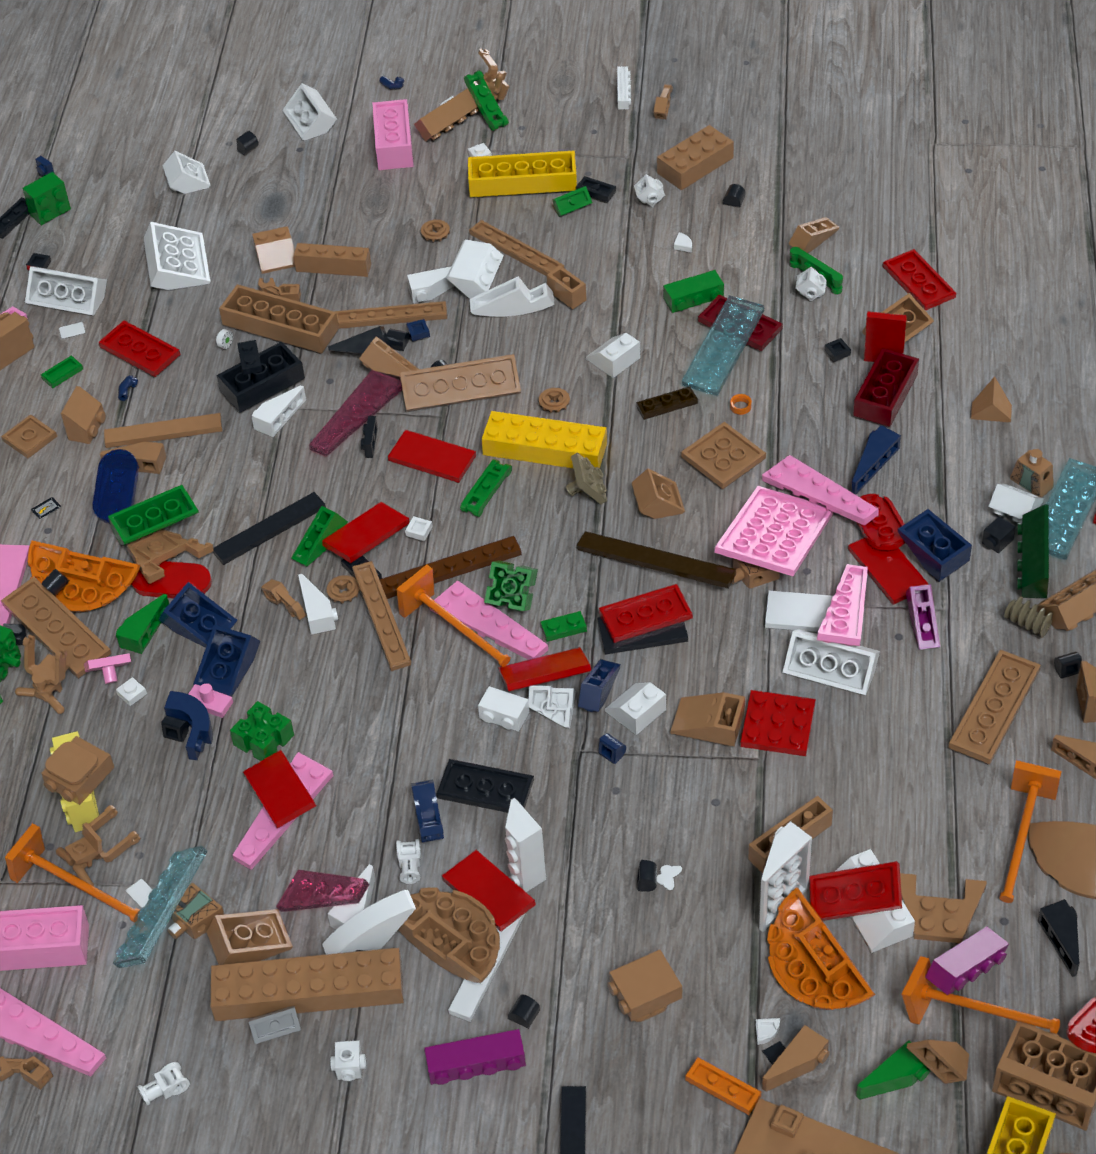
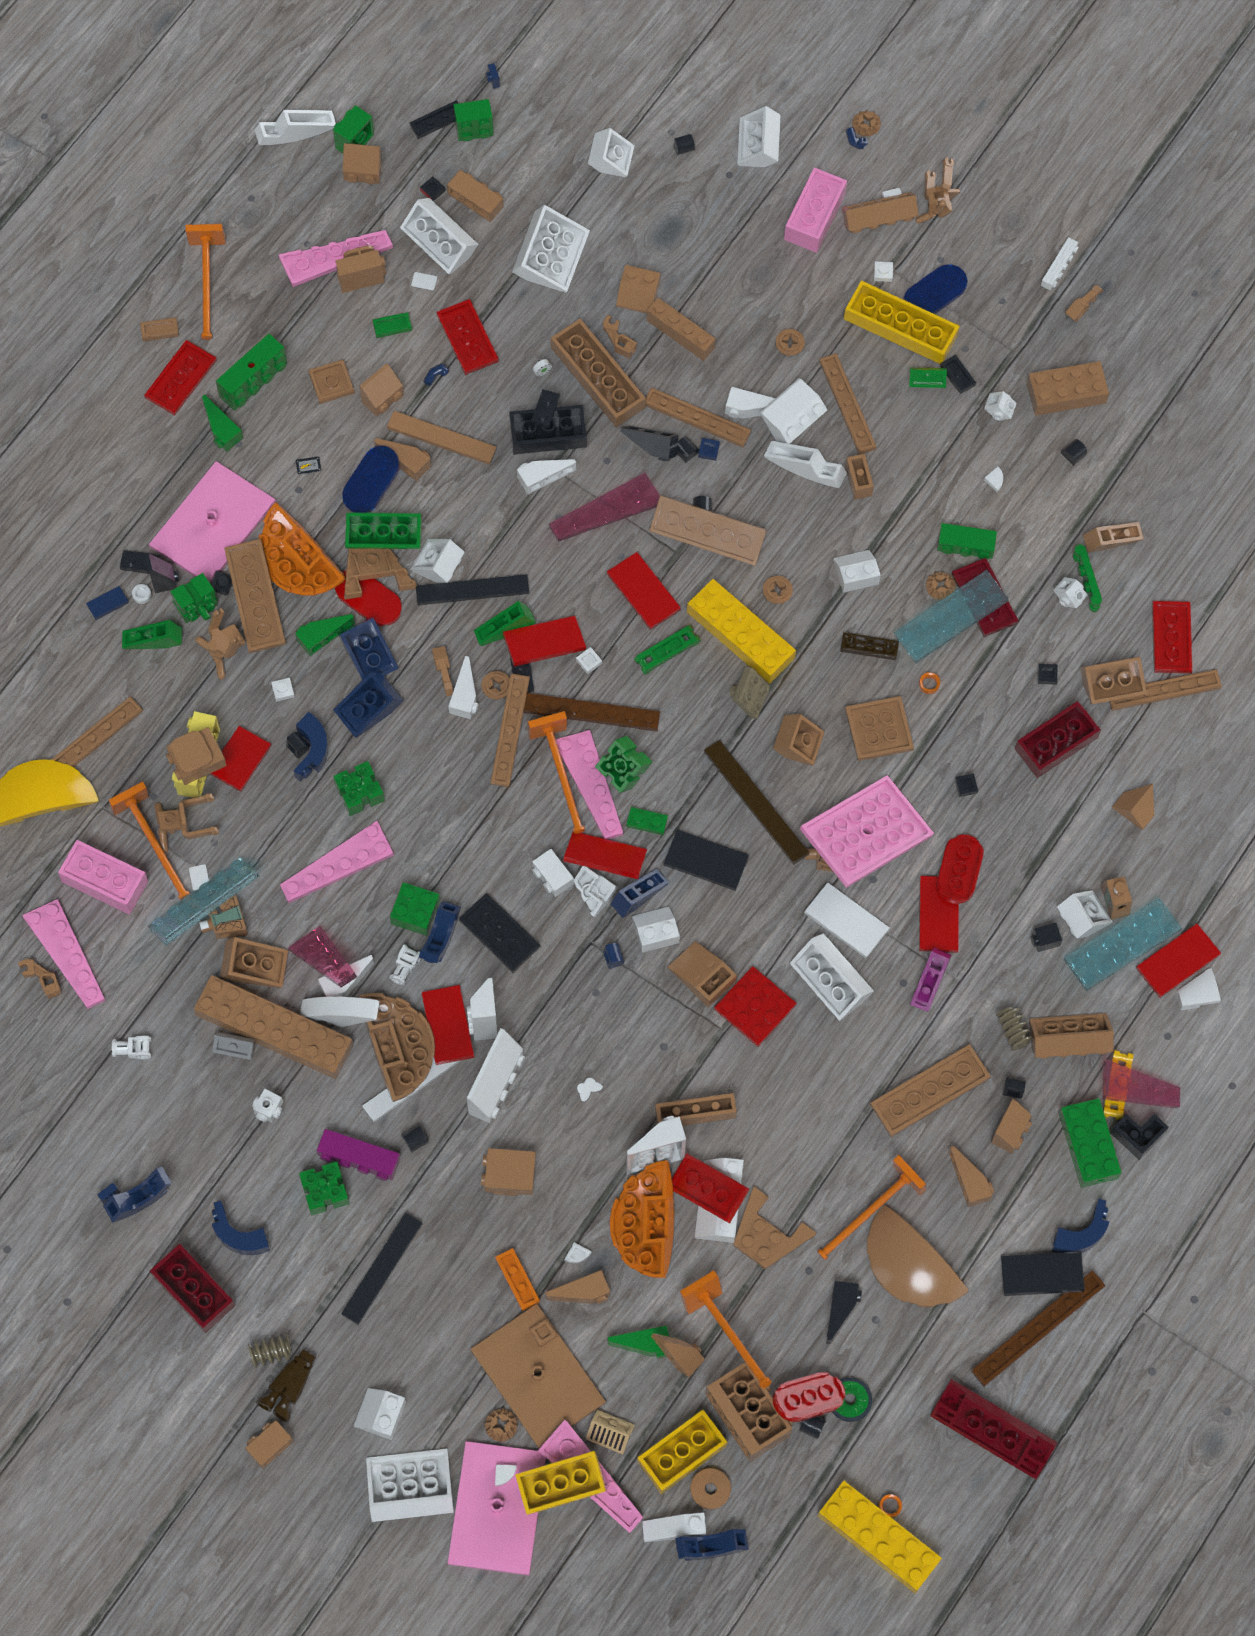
camera: 25 degrees right, 20 degrees up
(55, 582) = (274, 555): black brick -> none
(81, 250) = (475, 195): none -> medium nougat brick
(108, 666) = (275, 657): bright pink tile -> none
(128, 775) = (242, 757): none -> red tile
(215, 702) = (337, 732): bright pink tile -> none
(220, 518) = (438, 560): none -> white slope
(279, 789) = (343, 848): red tile -> none
(370, 432) = (599, 548): black plate -> none
(385, 359) = (661, 473): medium nougat slope -> none
(387, 805) = (415, 909): none -> green brick
(398, 69) = (864, 129): none -> medium nougat gear
(459, 1108) = (324, 1188): none -> green brick
(485, 100) = (920, 217): green plate -> none
(537, 139) = (938, 288): none -> clear blue tile
(572, 908) = (495, 1077): none -> white slope
(645, 613) = (715, 848): red tile -> none
(646, 876) = (570, 1081): black brick -> none
(687, 330) = (940, 593): none -> medium nougat gear
(774, 1051) = (573, 1274): black sticker -> none
(819, 489) = (928, 797): bright pink wing -> none
(833, 459) = (966, 785): none -> black plate
(846, 610) = (865, 945): bright pink wing -> none
(879, 449) = (1008, 798): dark blue slope -> none
(884, 331) = (1077, 691): red tile -> none
(935, 544) = (985, 918): dark blue slope -> none
(949, 314) = (1172, 689): none -> medium nougat tile
(967, 961) = (750, 1291): brick -> none
(1035, 553) = (1057, 975): dark green slope -> none

